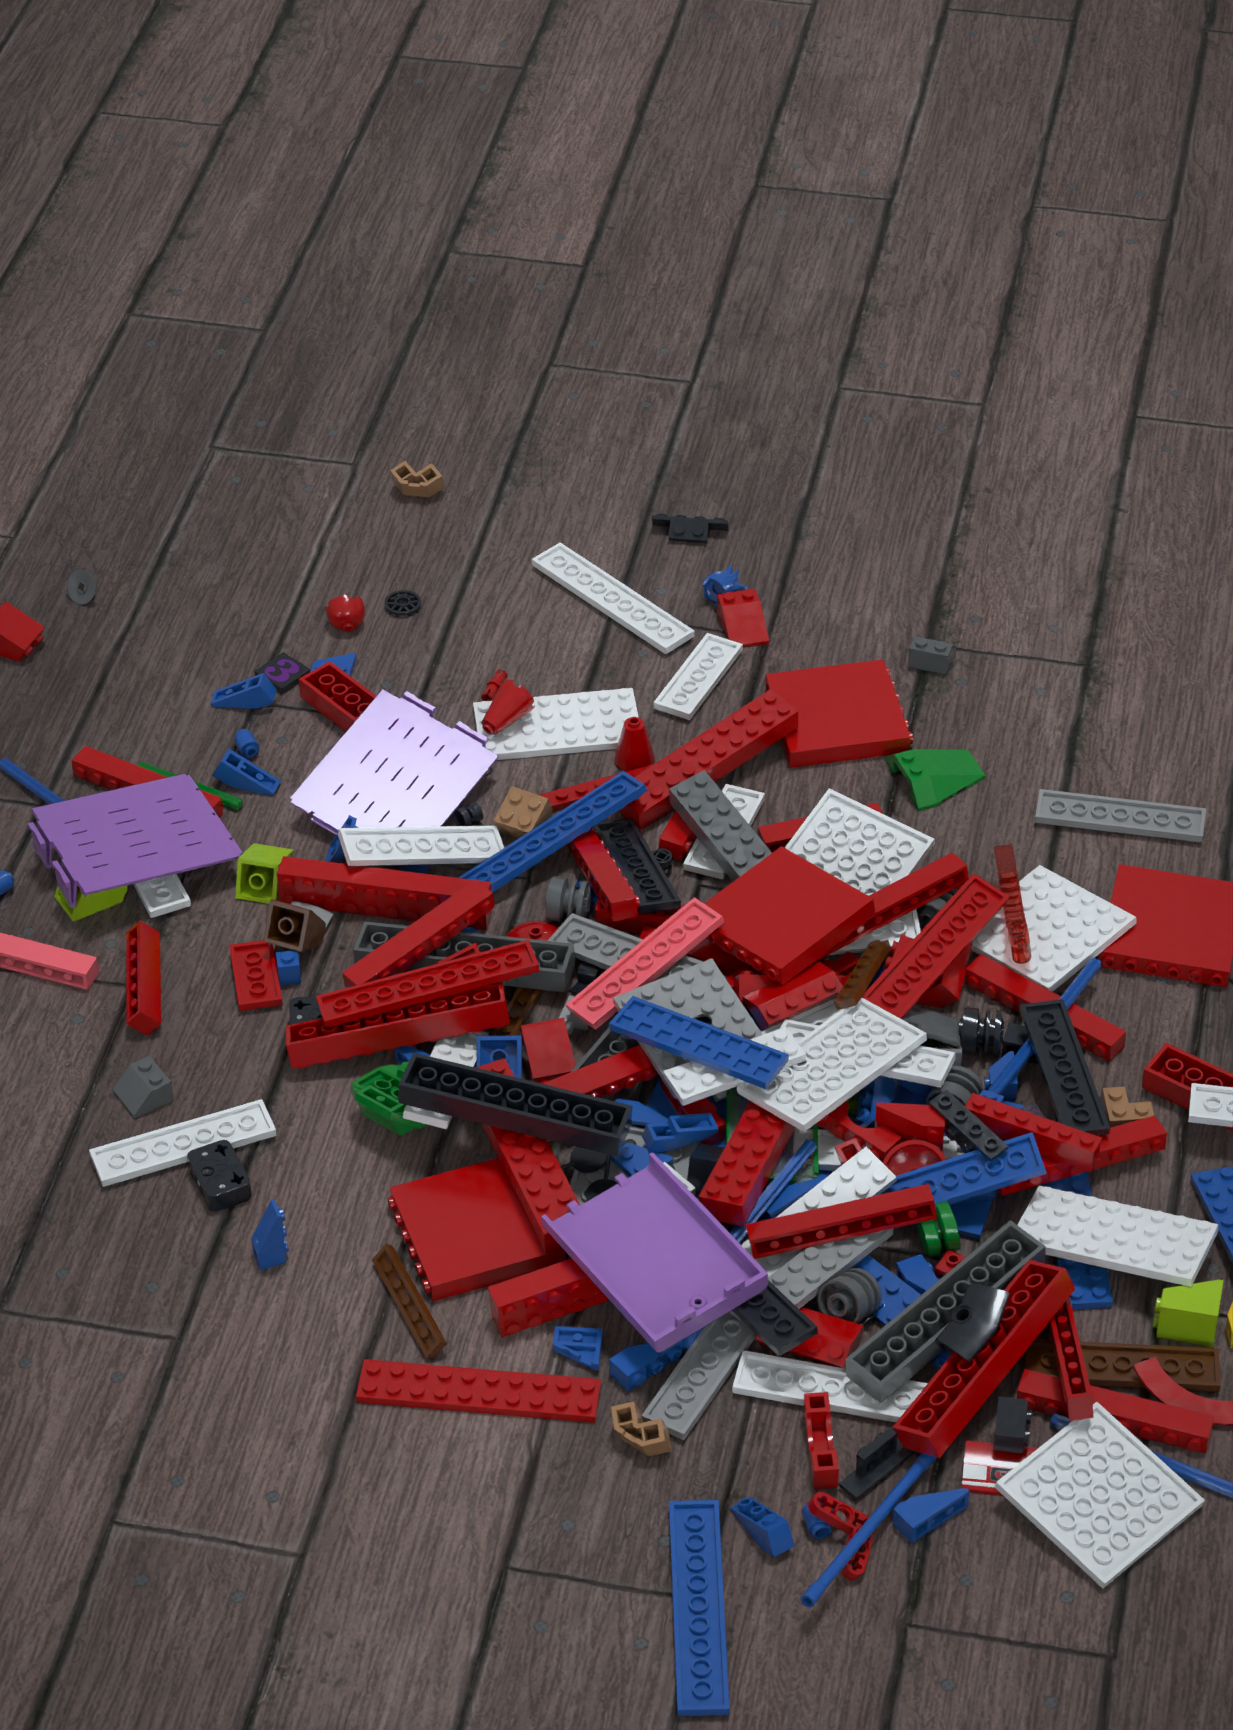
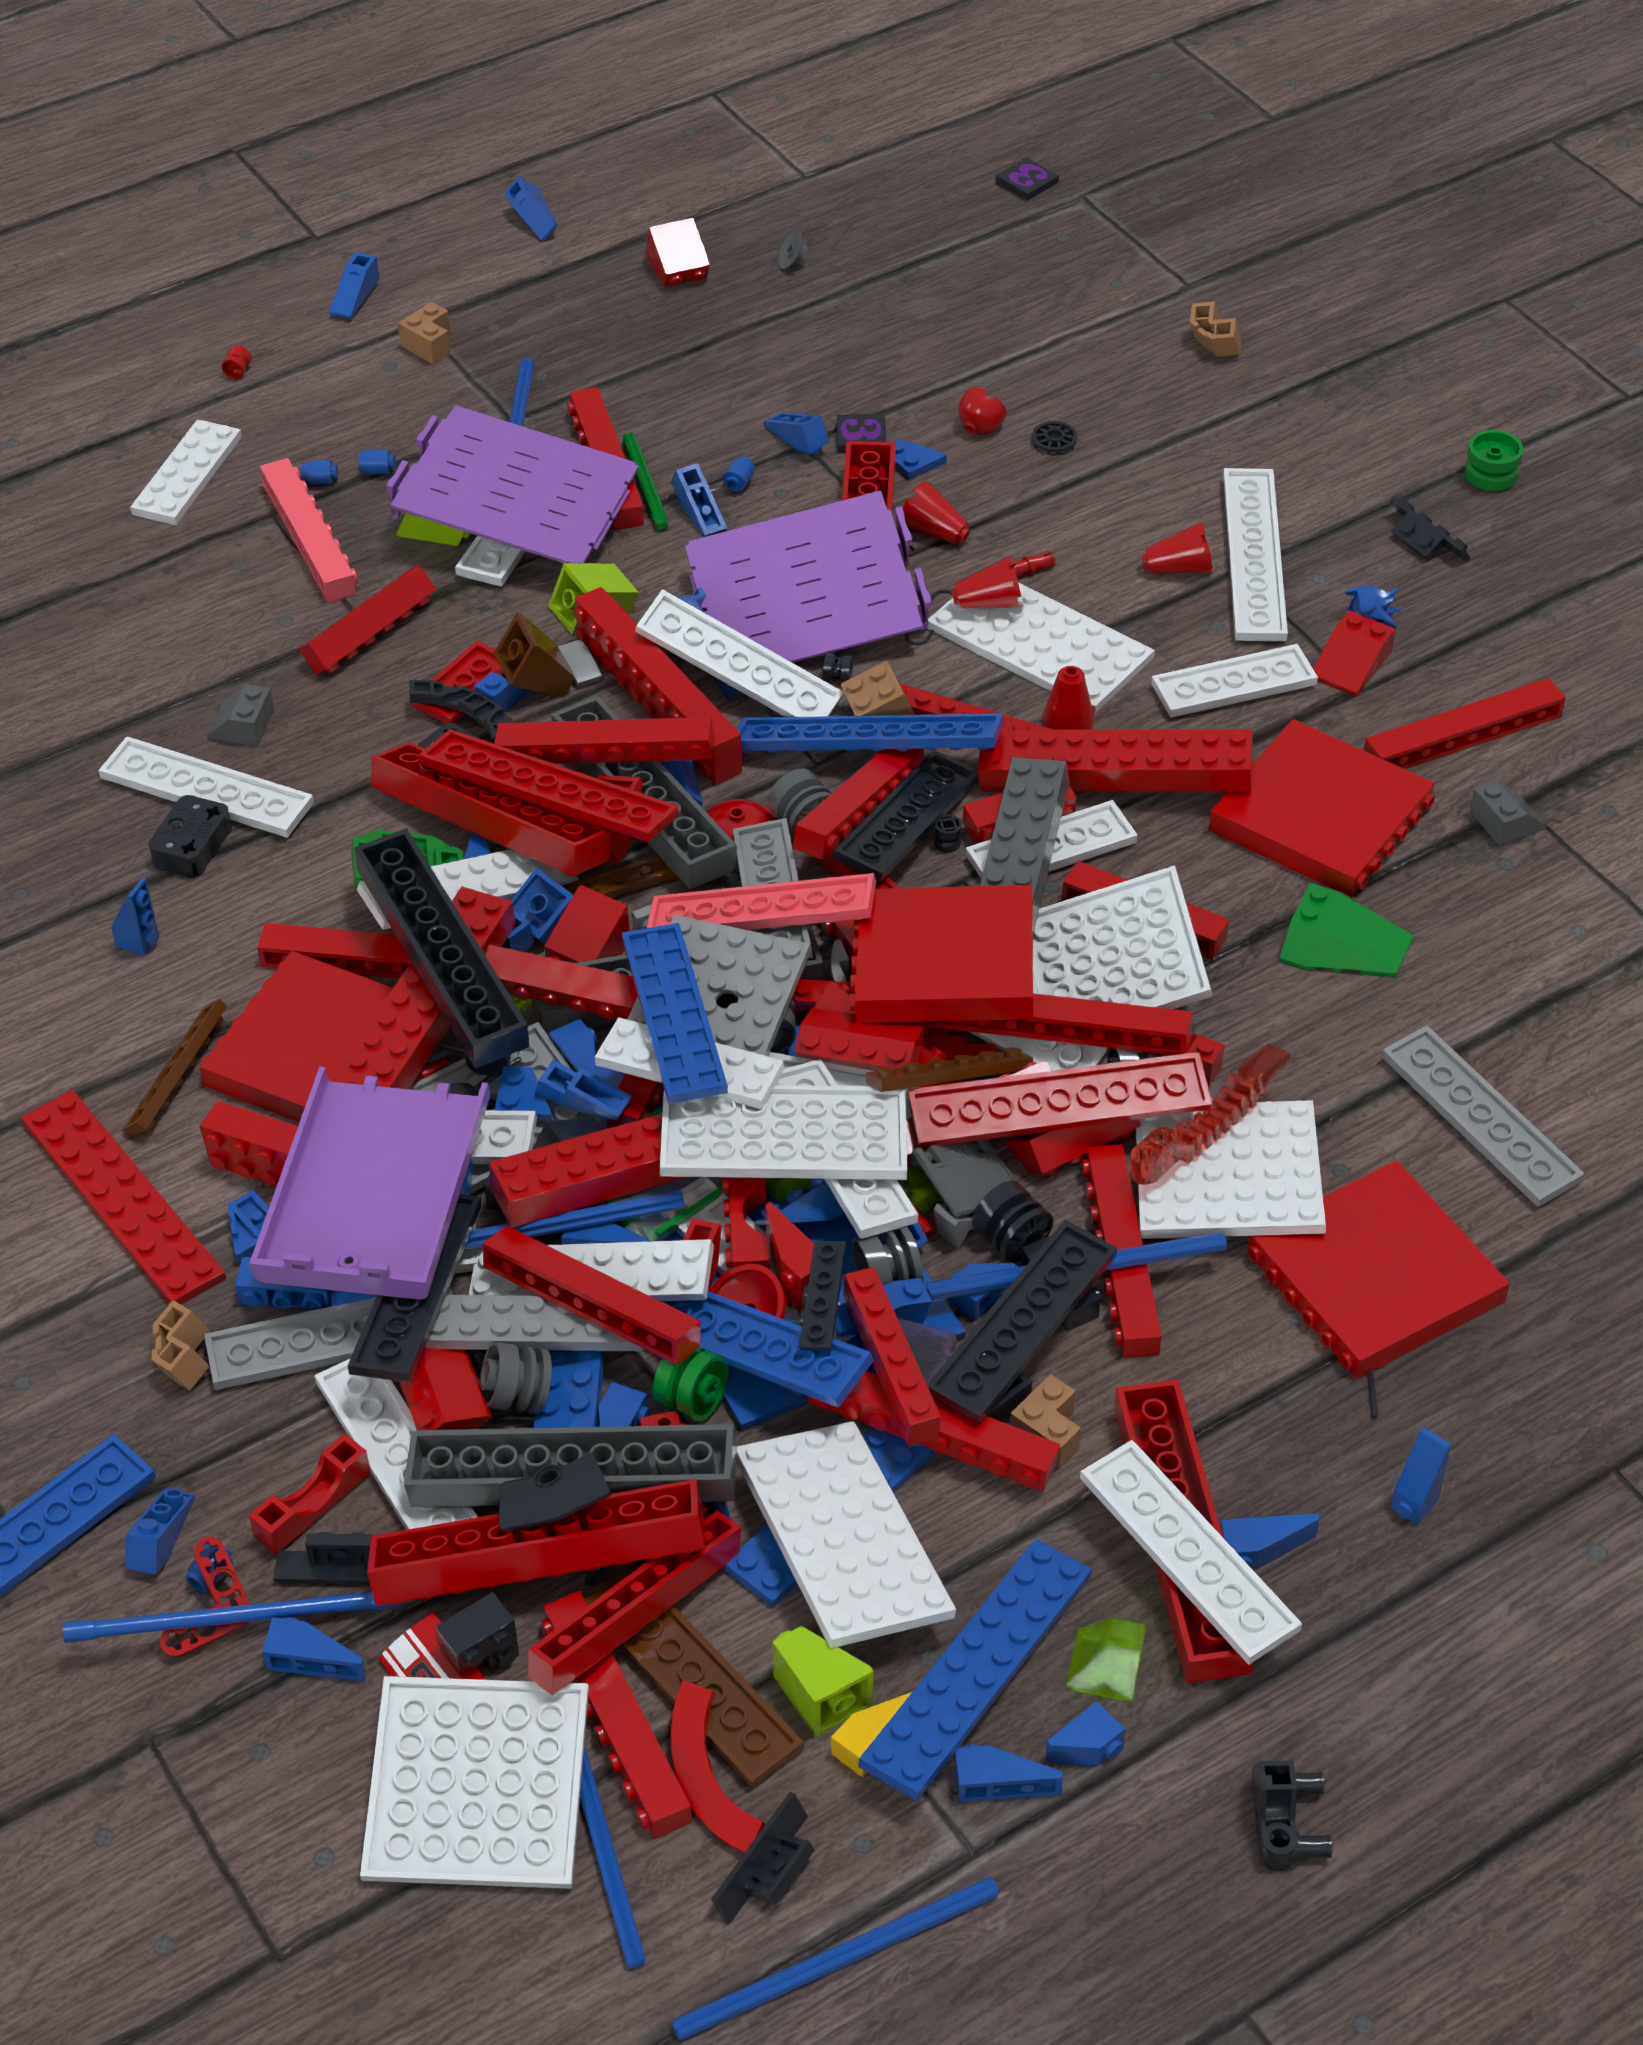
camera: 45 degrees right, 5 degrees up
(163, 455) = (1027, 178): none -> black tile
(285, 980) = (463, 699): none -> black tile
(398, 684) = (934, 515): none -> red cone
(419, 1162) = (349, 950): none -> red brick
(578, 621) = (1180, 553): none -> red cone
(676, 461) = (1493, 460): none -> green wheel
(853, 617) = (1468, 725): none -> red brick

